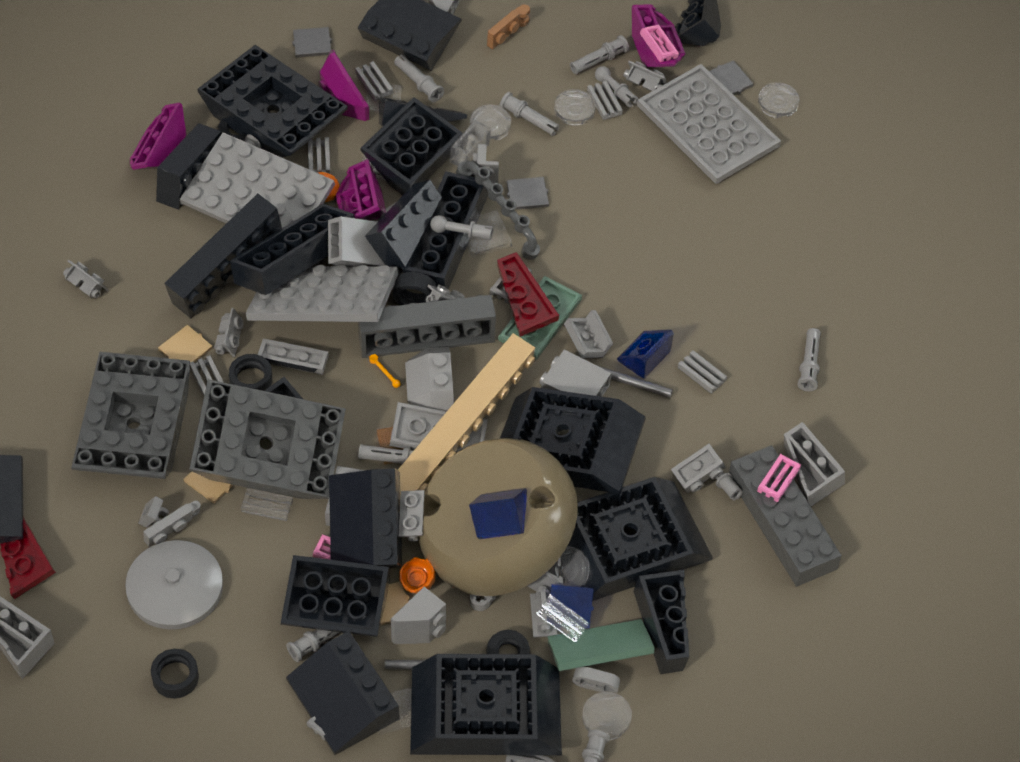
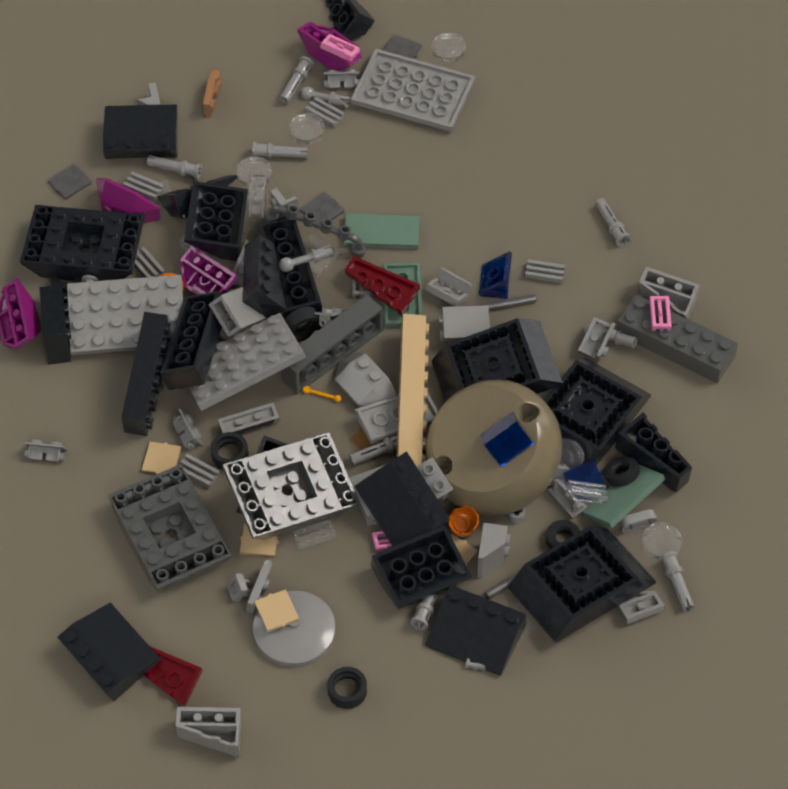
camera: 30 degrees left, 0 degrees up
(163, 555) = (276, 610): none -> tan piece
(571, 244) = (384, 230): none -> sand green tile
(621, 627) = (625, 478): none -> black tyre

